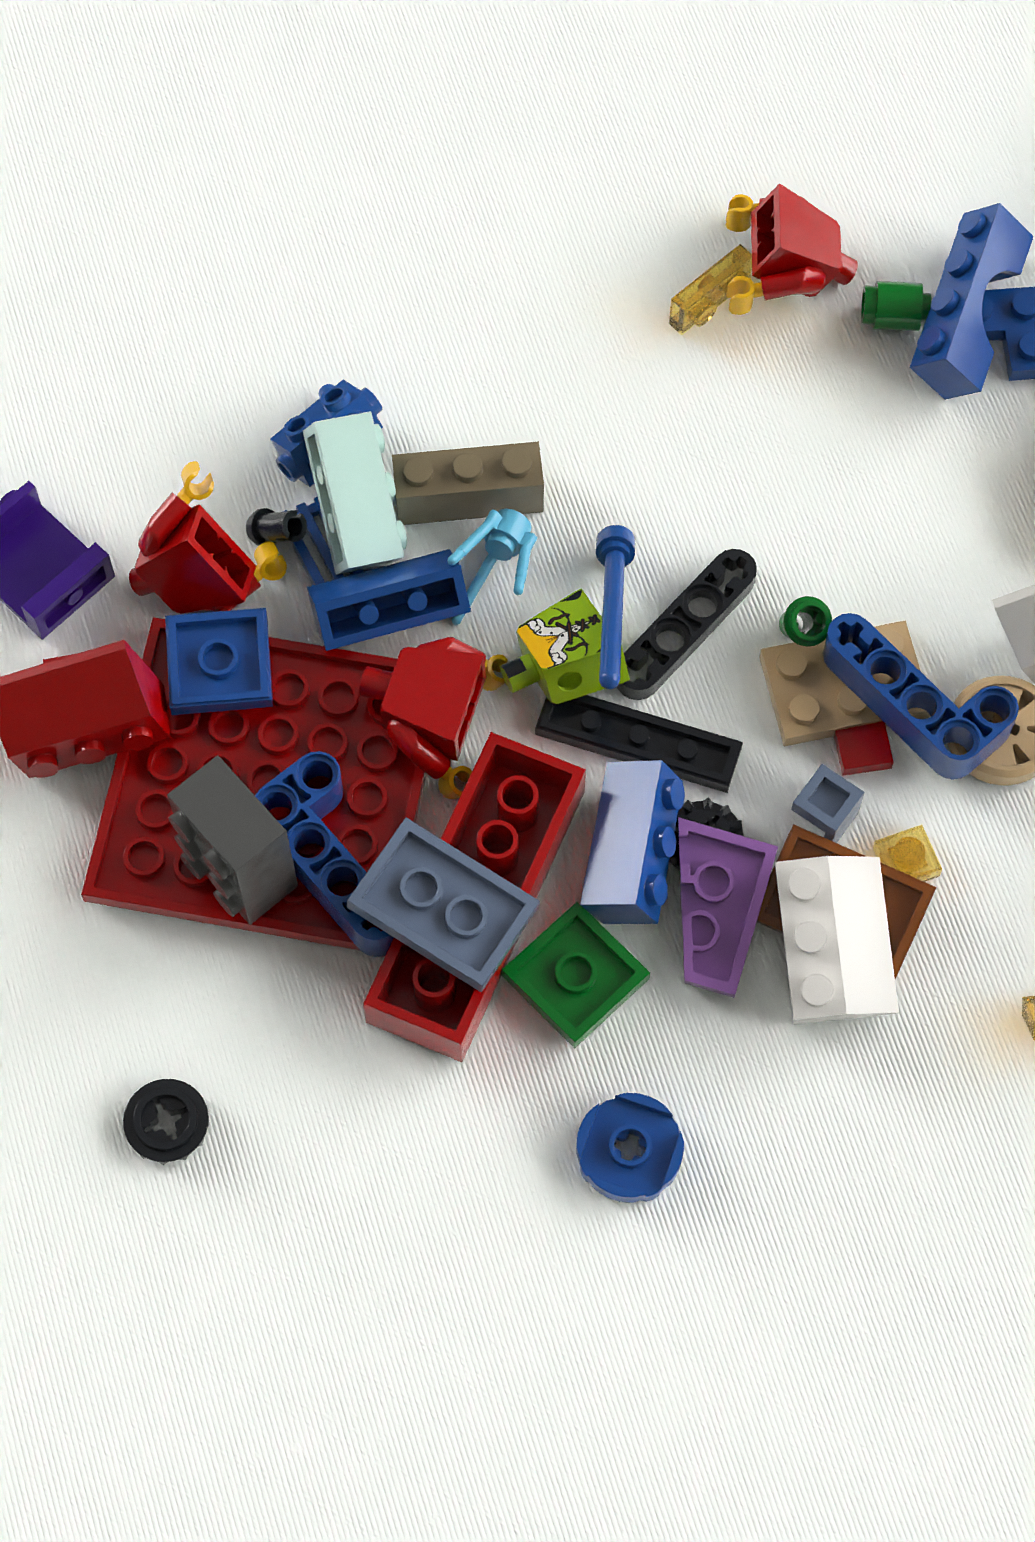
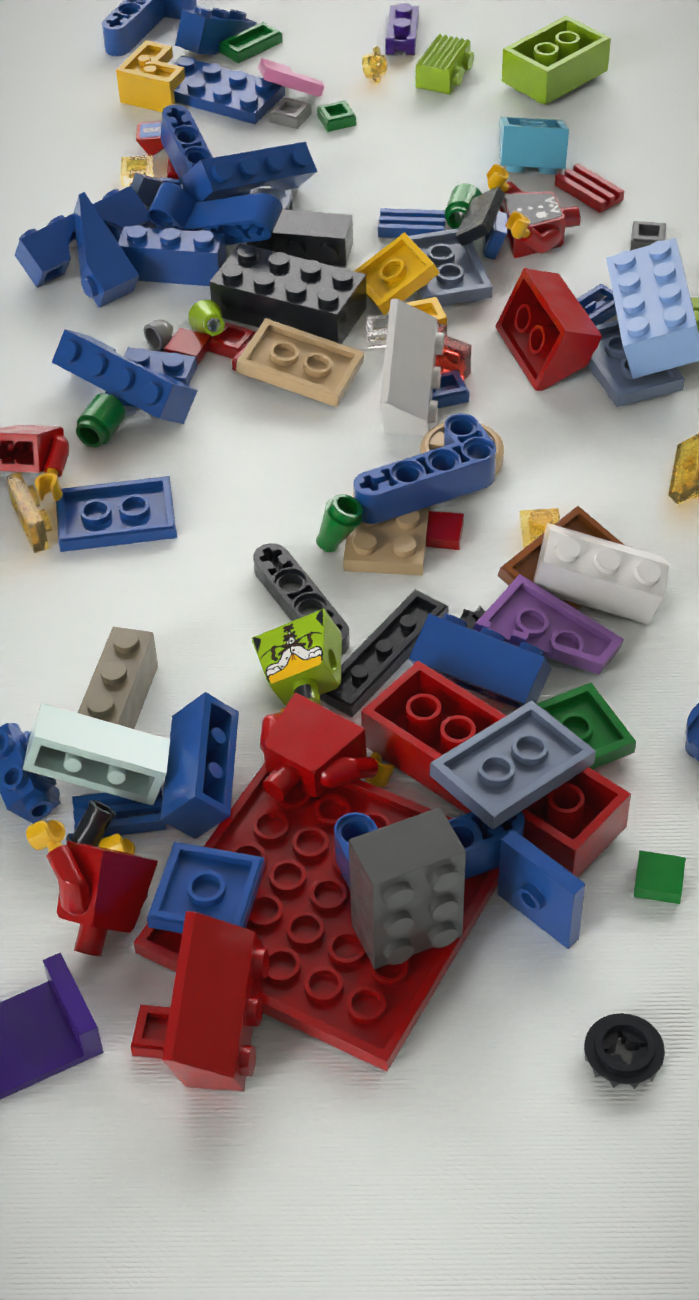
camera: 70 degrees left, 20 degrees down
(317, 984) = (540, 888): none -> blue plate
(402, 1112) = (659, 877): none -> green tile
(505, 537) = (181, 680): medium azure plant -> none
(614, 551) = (222, 619): blue piece -> none
(756, 382) = (115, 514): none -> blue tile
(829, 802) = (489, 543): sand blue panel -> none

